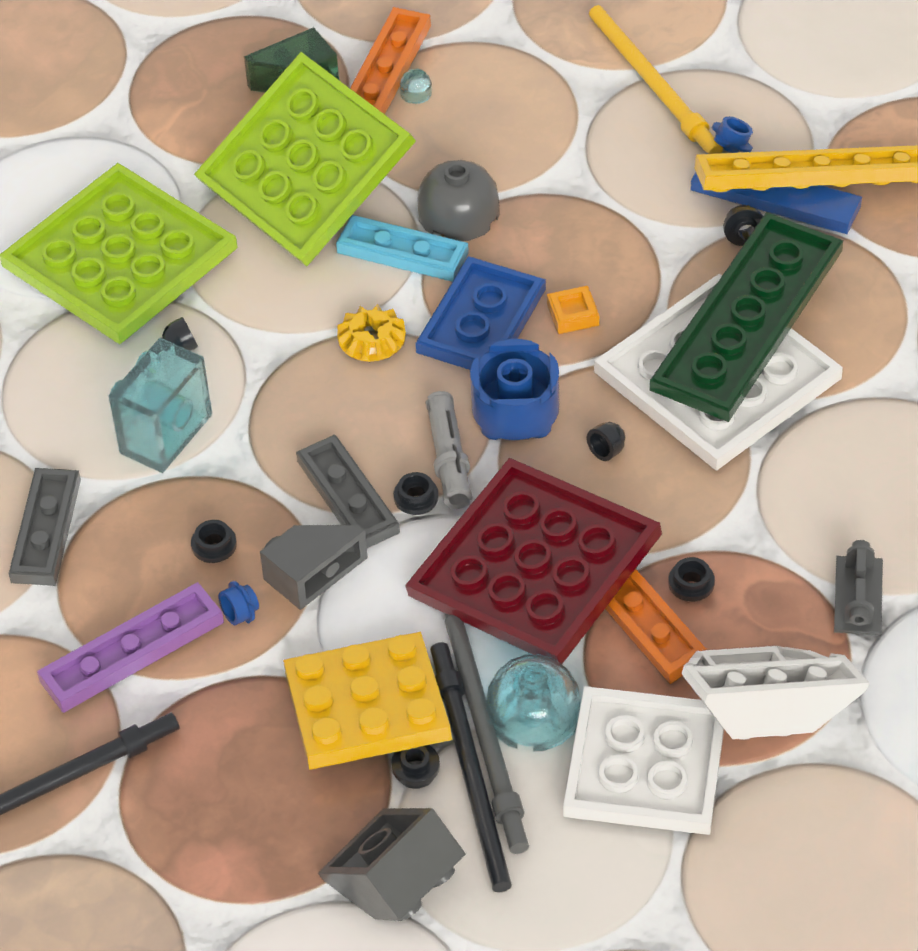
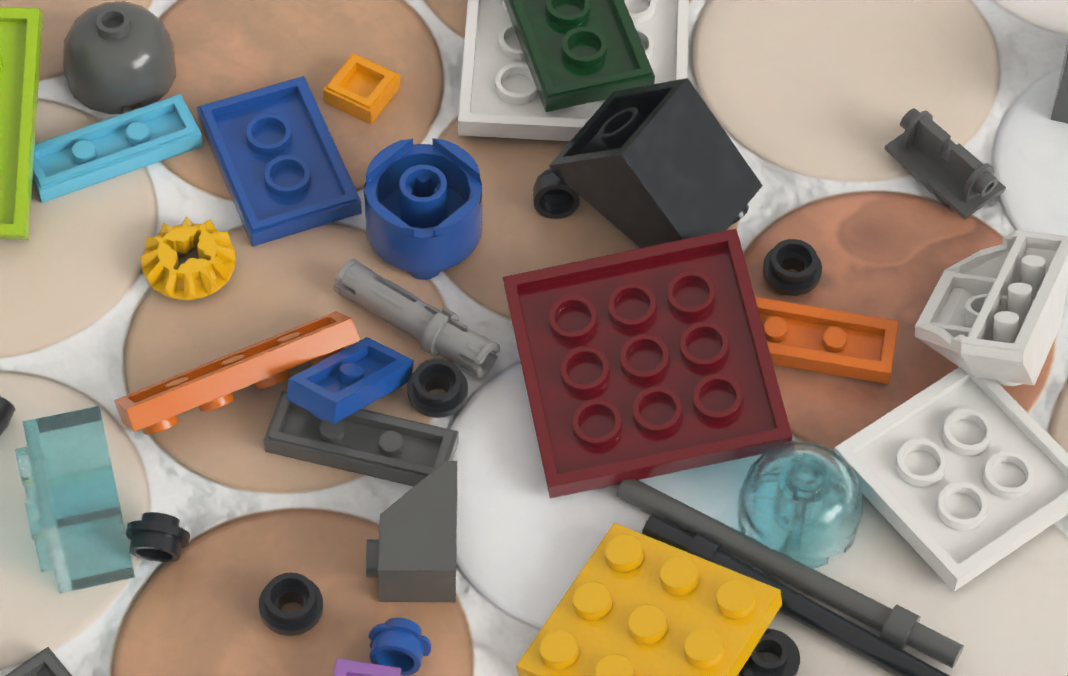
camera: 50 degrees left, 5 degrees up
(186, 457) = (157, 537): none -> black plate
(303, 404) = (214, 382): none -> orange plate
(367, 451) = (349, 380): none -> blue plate
(665, 465) = (658, 165): none -> black slope

